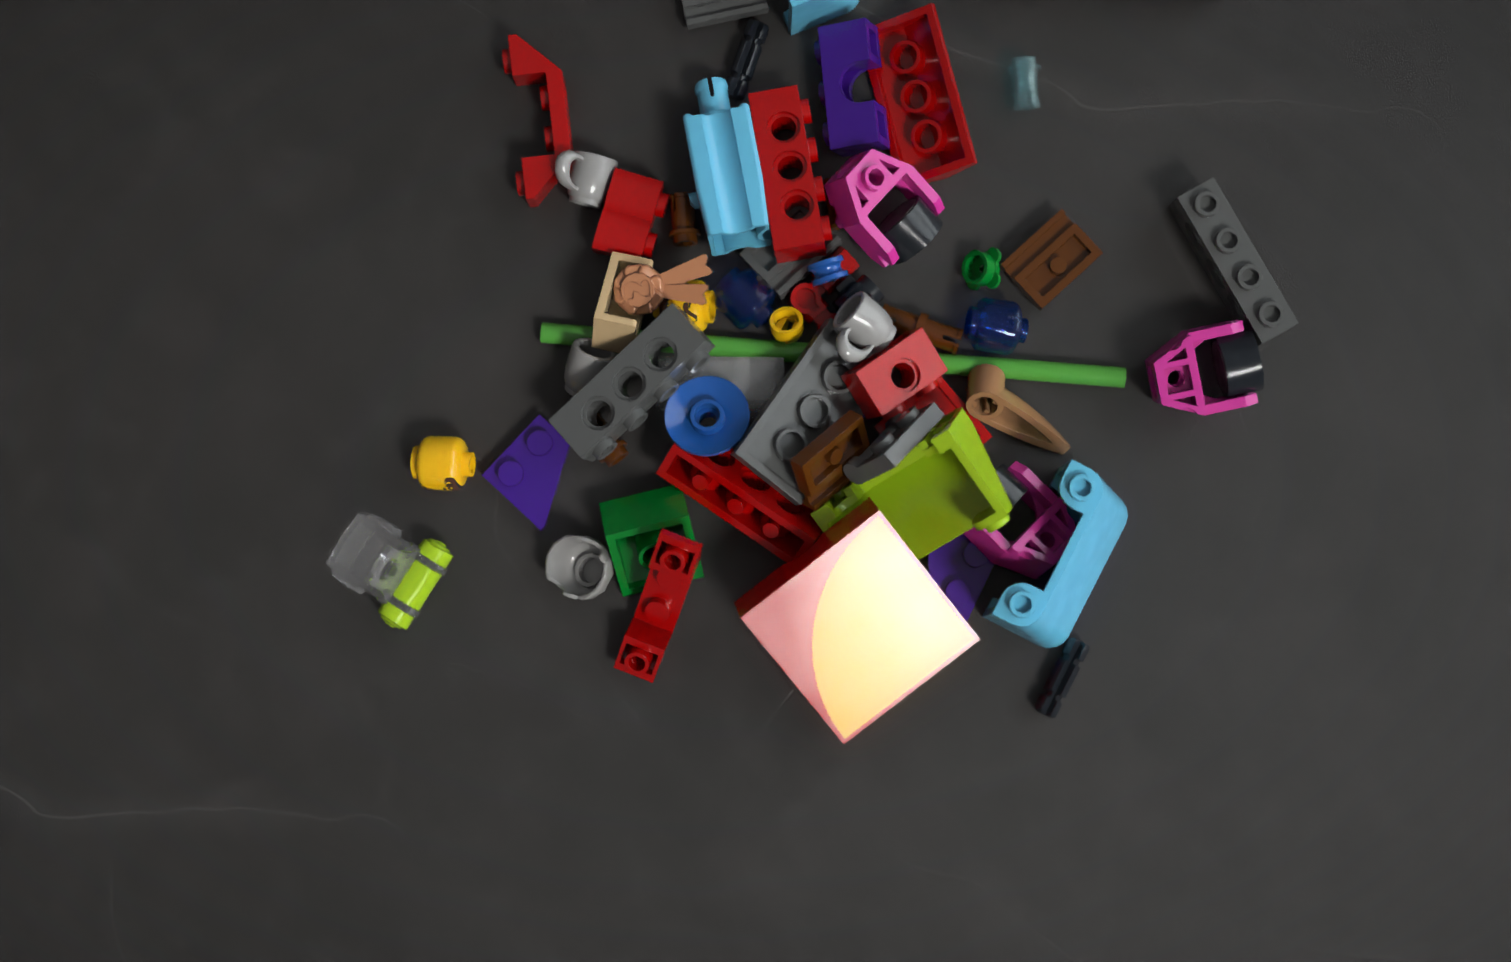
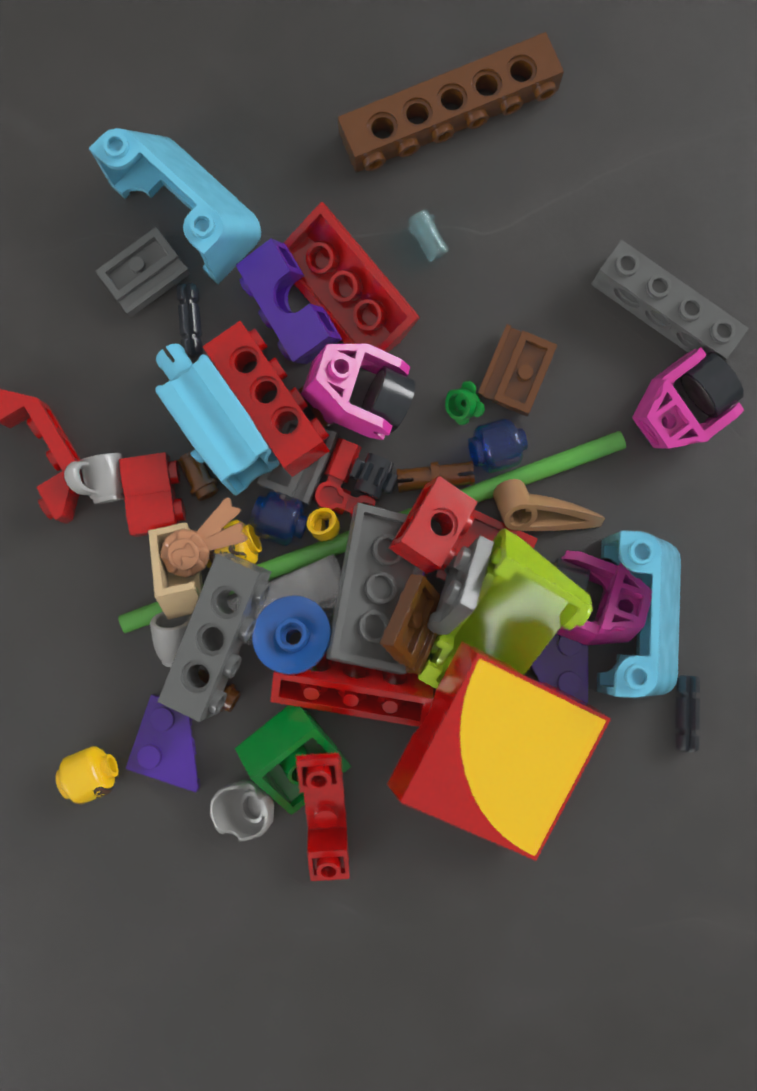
camera: 20 degrees left, 0 degrees up
(394, 571) = (80, 886): clear piece -> none
(827, 270) = (336, 464): blue bush -> none
(864, 325) = (390, 496): light grey piece -> none

